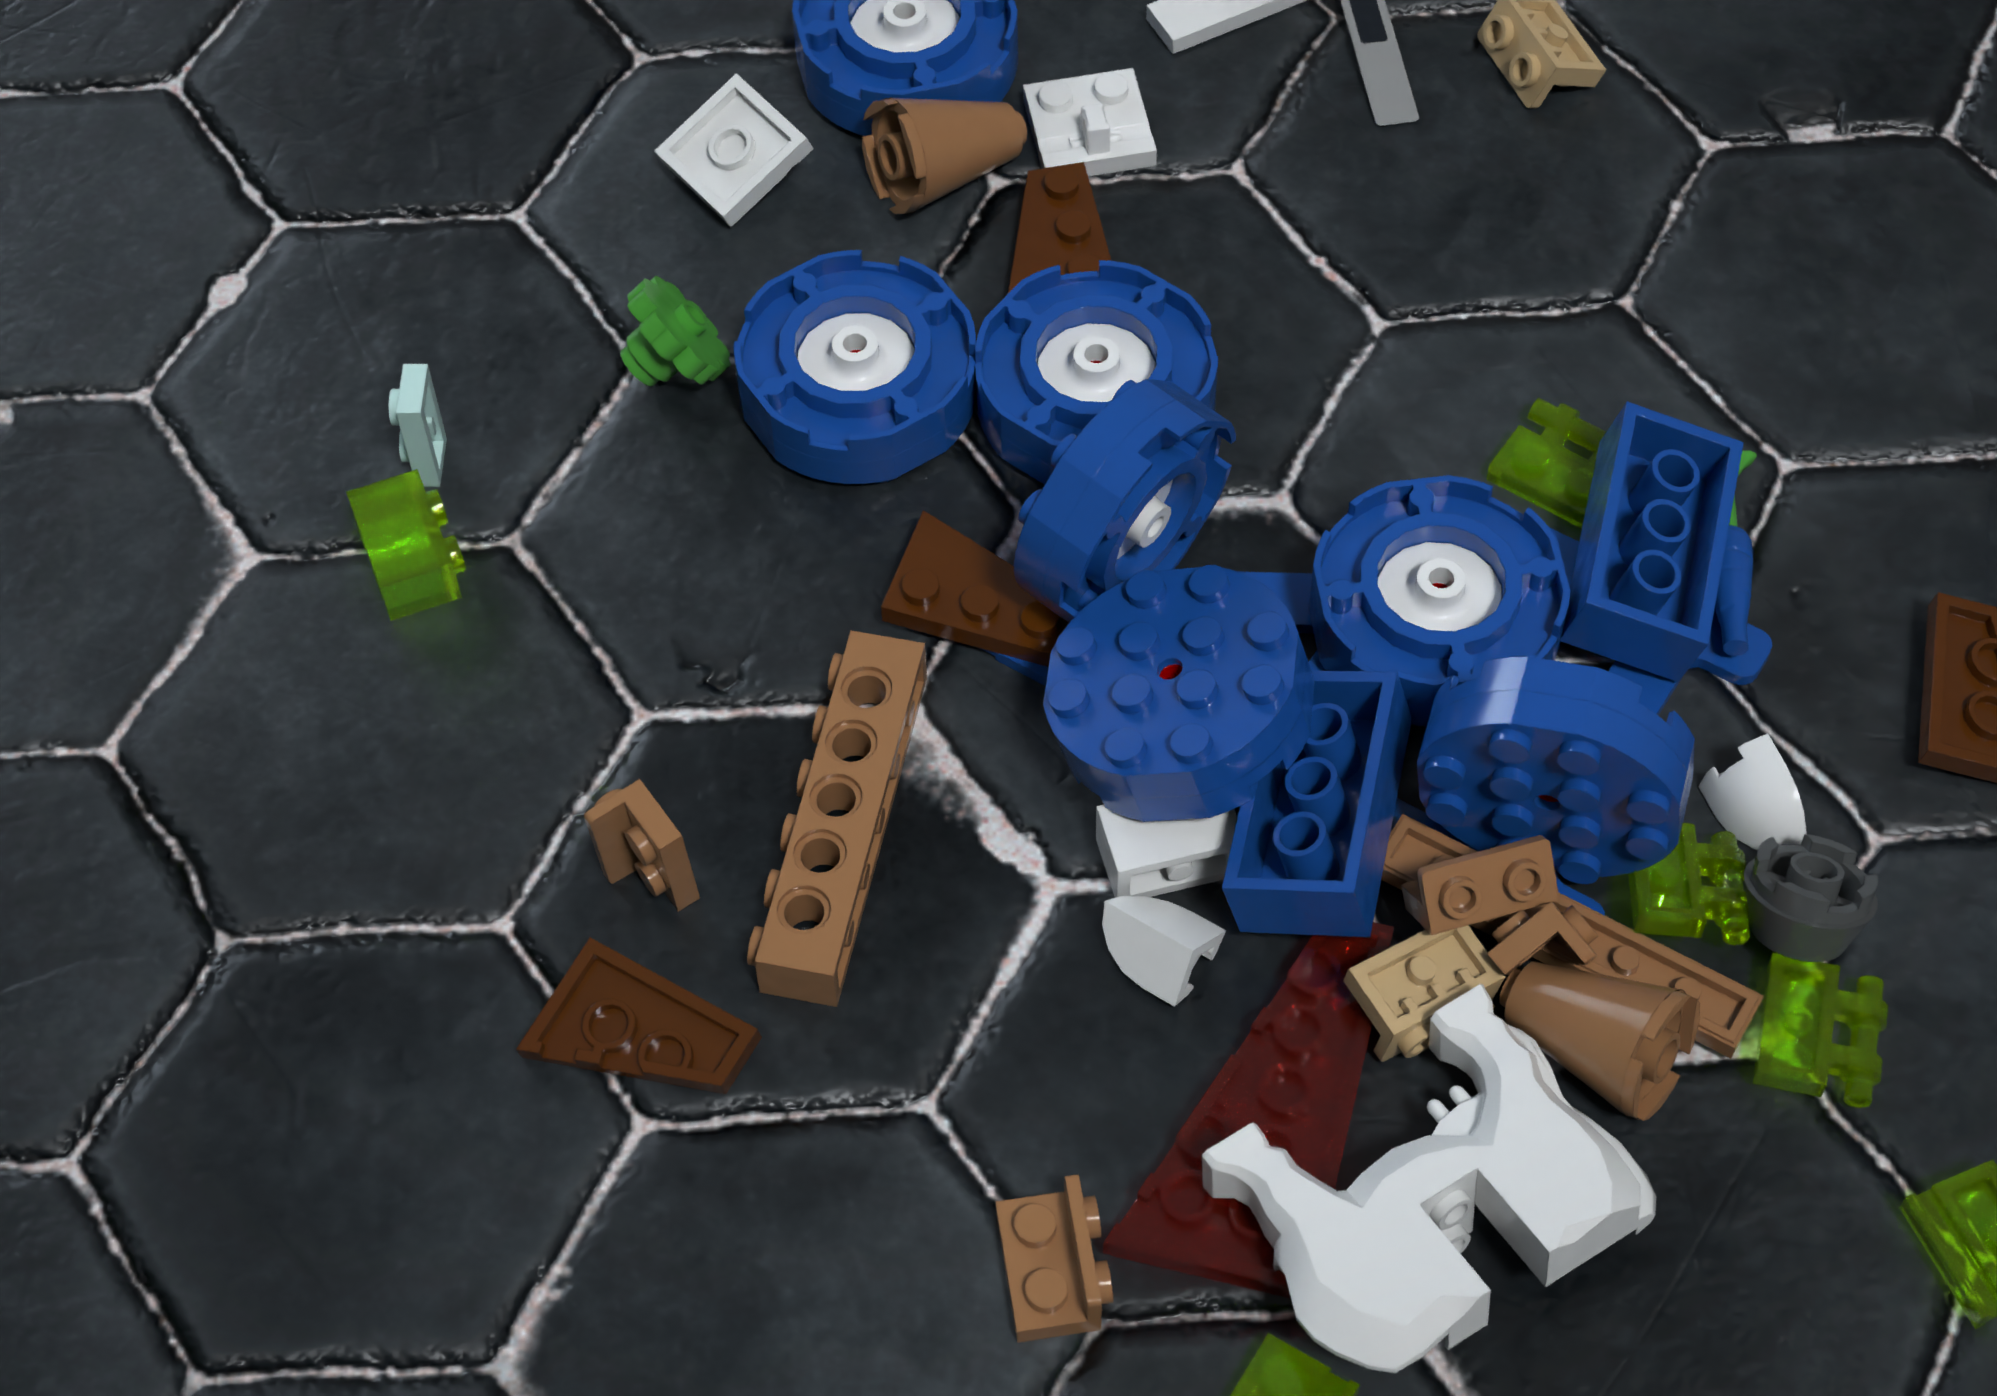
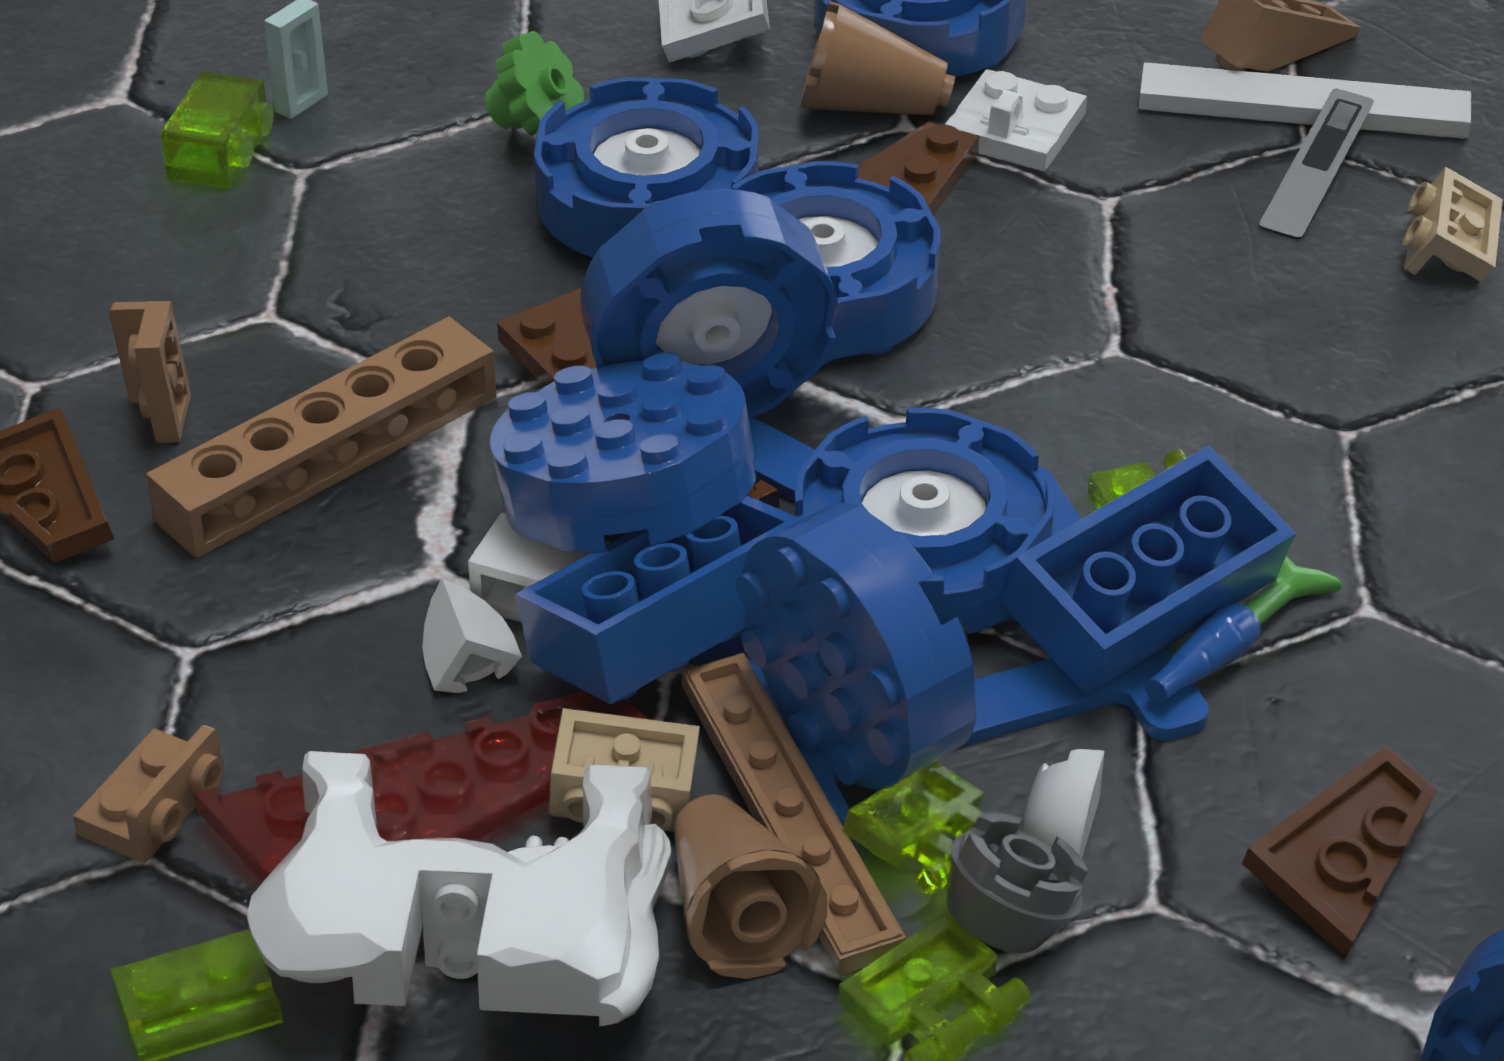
camera: 35 degrees right, 15 degrees down
(1482, 885) = (726, 702): medium nougat bracket -> none
(1525, 936) = (745, 774): medium nougat bracket -> none

